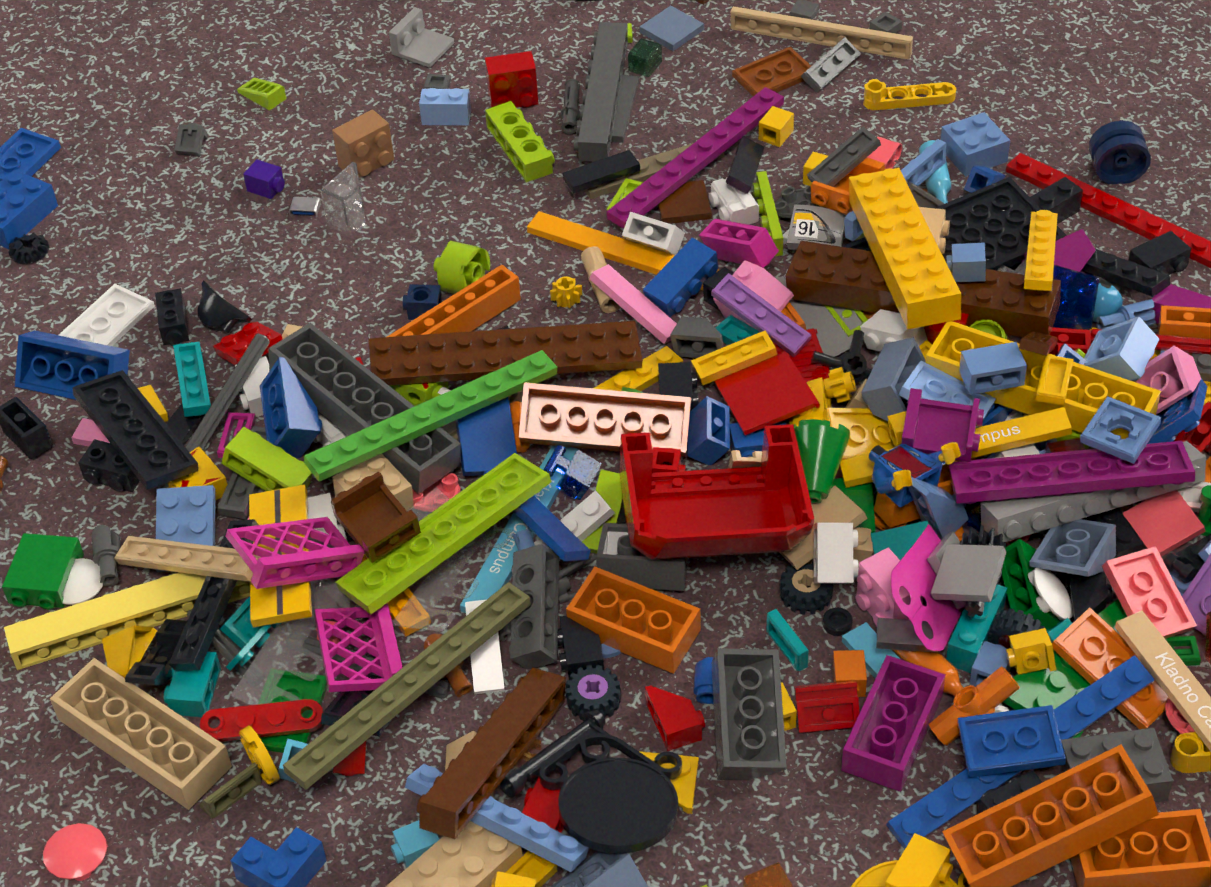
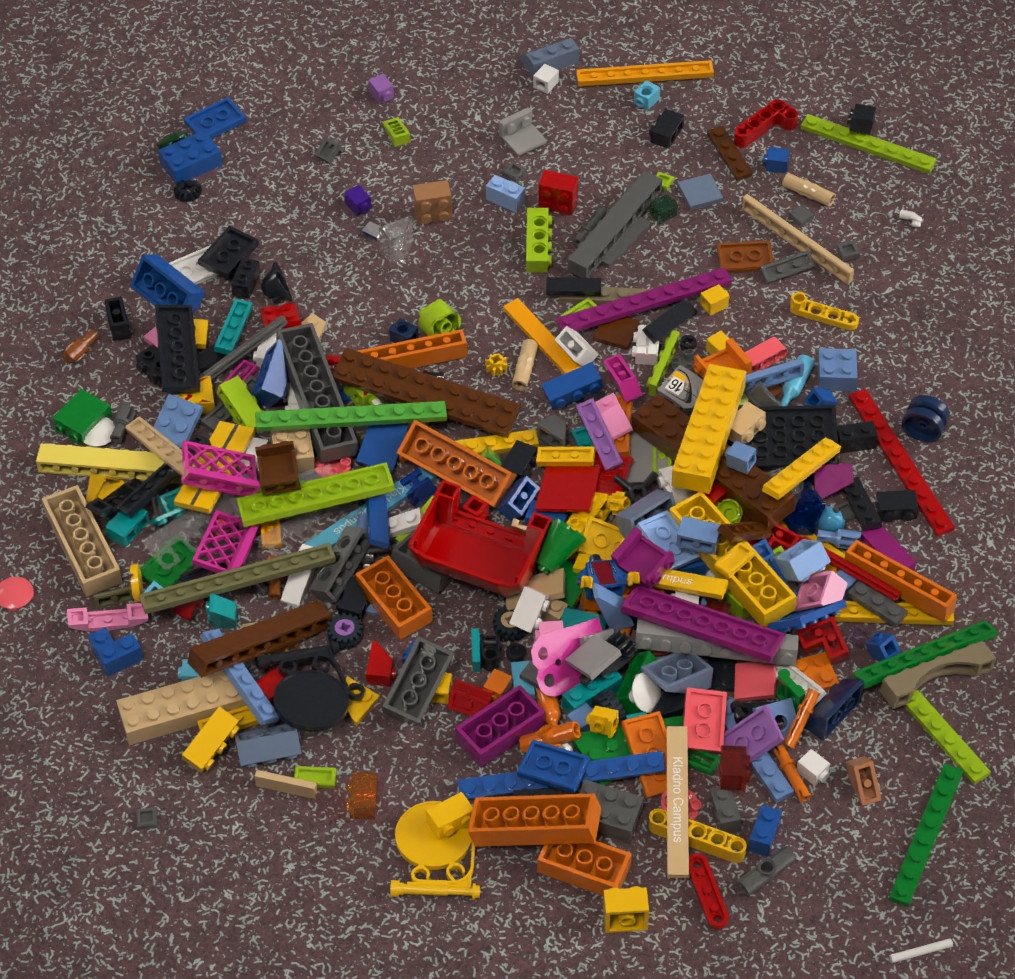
camera: 25 degrees right, 5 degrees up
(130, 294) = (227, 251): none -> black plate
(214, 54) = (381, 88): none -> medium lavender brick
(233, 831) = (111, 619): none -> bright pink slope
(265, 719) = (150, 563): red plate -> none
(407, 742) = (221, 612): none -> teal slope
(634, 302) = (531, 389): bright pink tile -> none
(776, 181) = (690, 339): none -> black bush
(809, 631) = (490, 651): none -> black piece
(845, 158) = (727, 347): dark grey tile -> none
(1115, 415) = (752, 599): medium blue piece -> none

